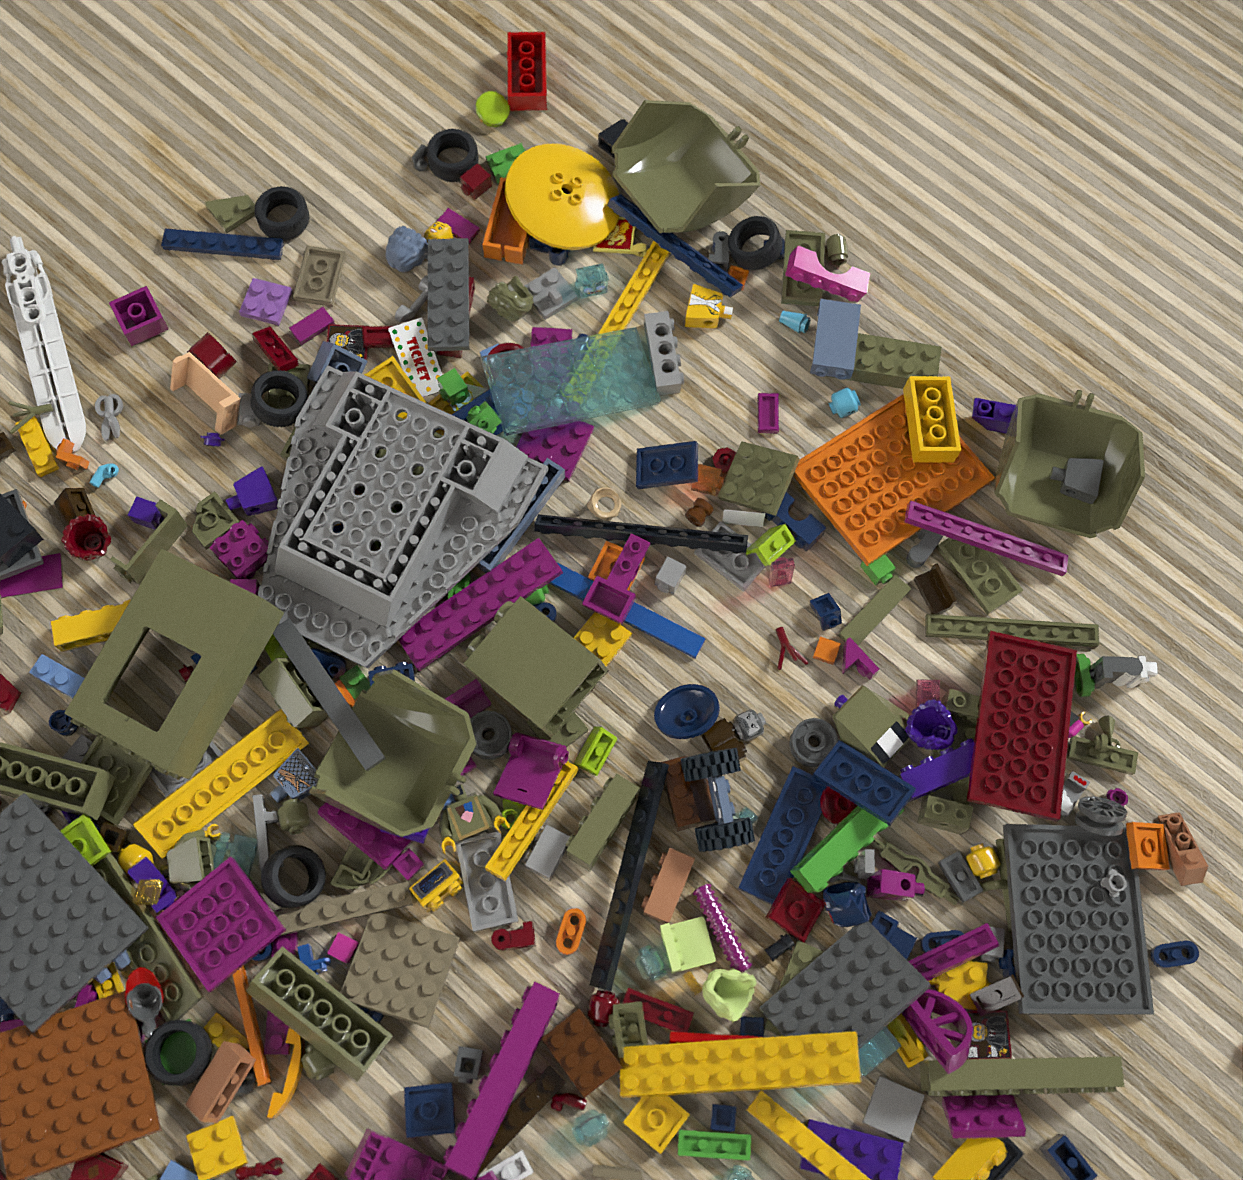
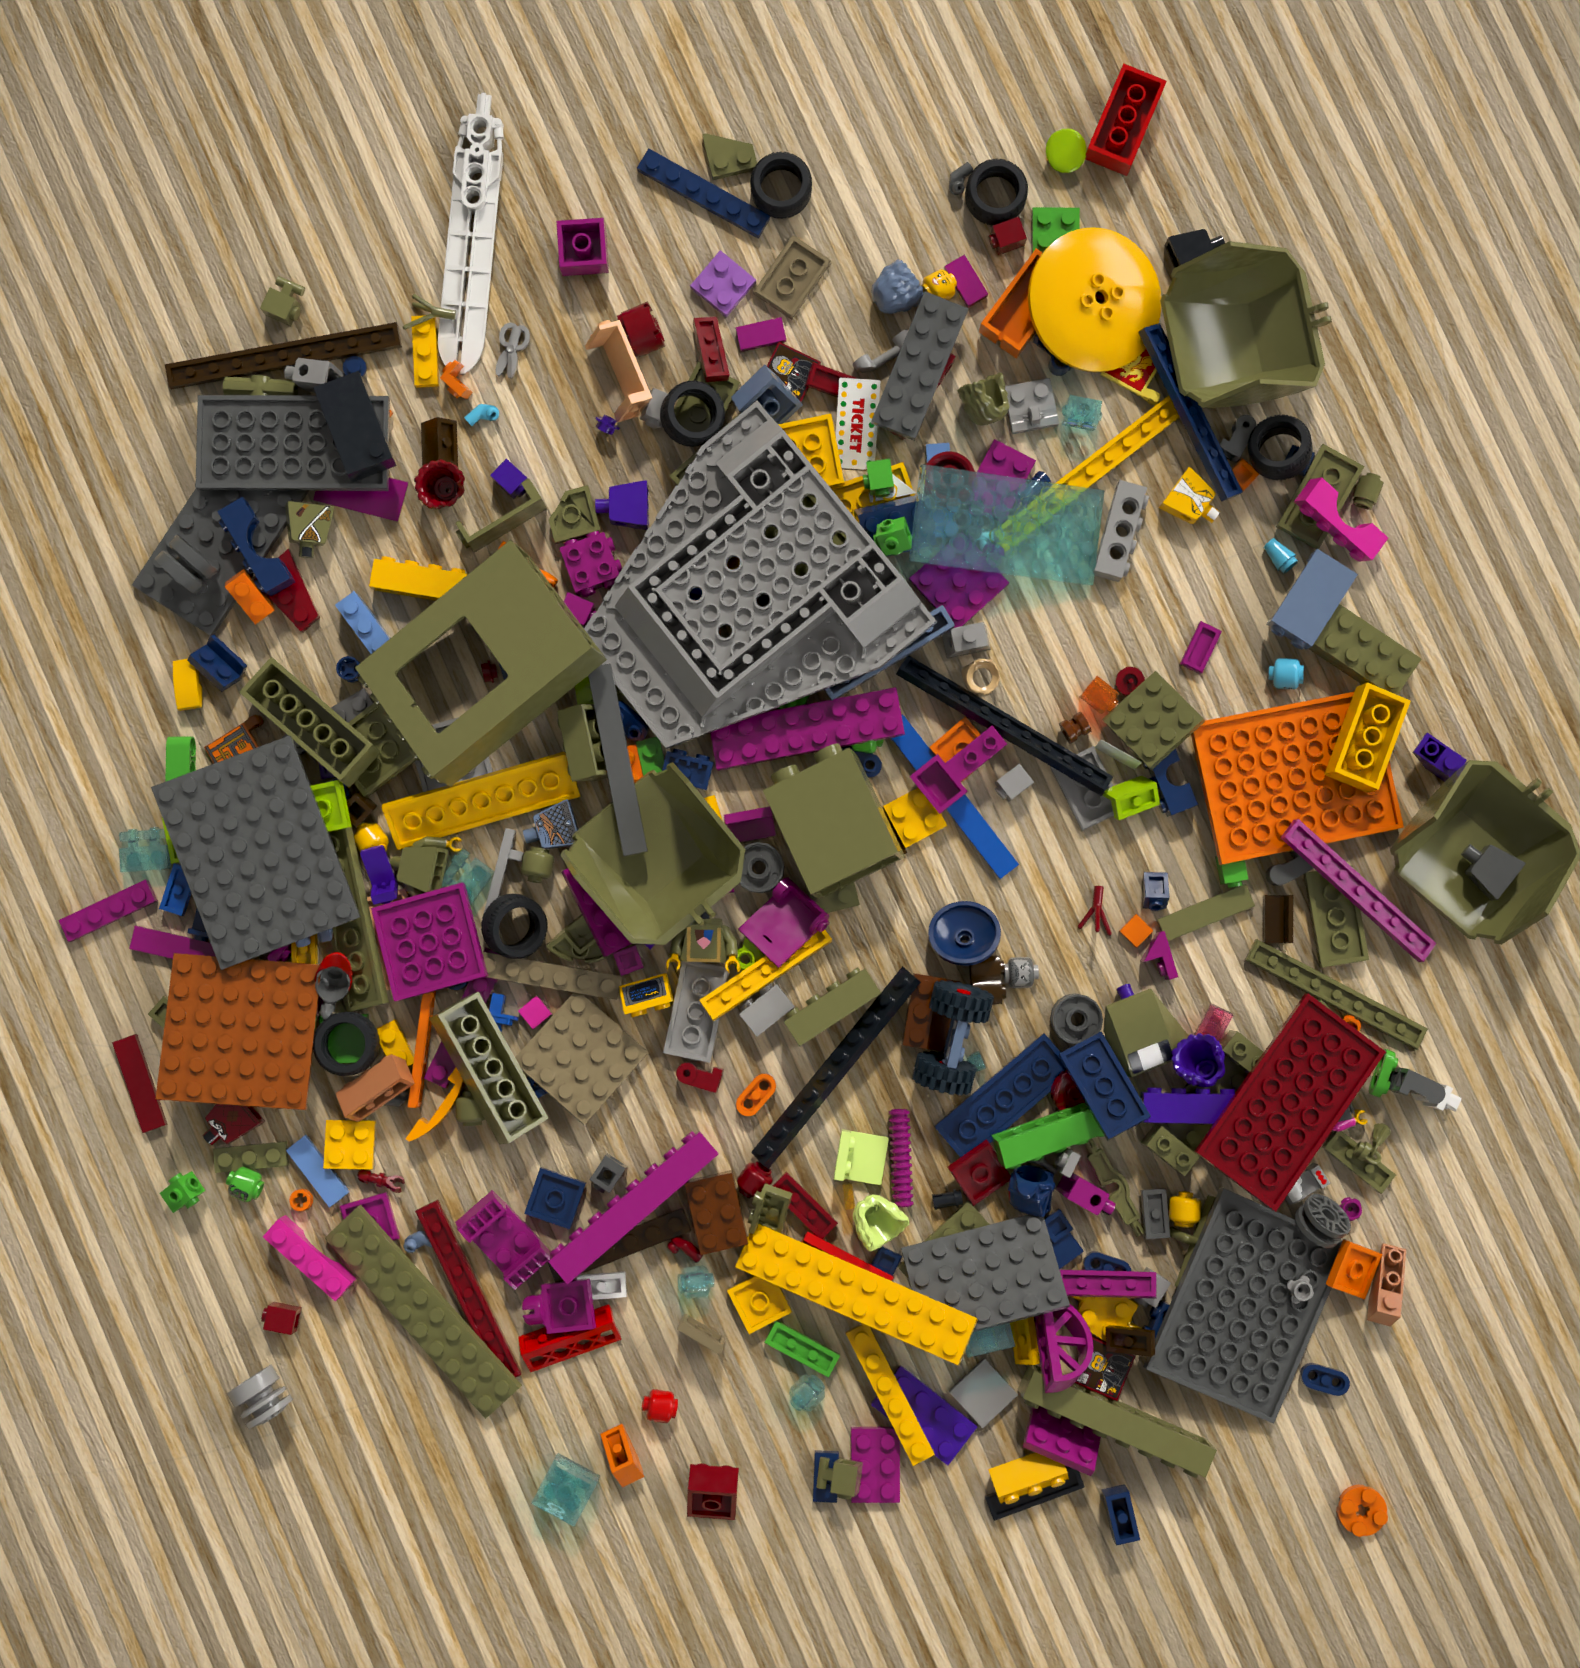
camera: 30 degrees right, 15 degrees up
(148, 892) = (372, 881): clear yellow tile -> none
(581, 480) = (966, 640): none -> light grey torso
(595, 750) = (857, 928): lime slope -> none
(652, 963) = (819, 1159): clear light blue head -> none
(667, 465) = (1065, 662): dark blue tile -> none
(667, 885) = (867, 1094): nougat brick -> none
(723, 1117) = (821, 1328): dark blue plate -> none
(781, 572) = (1128, 831): clear pink plate -> none

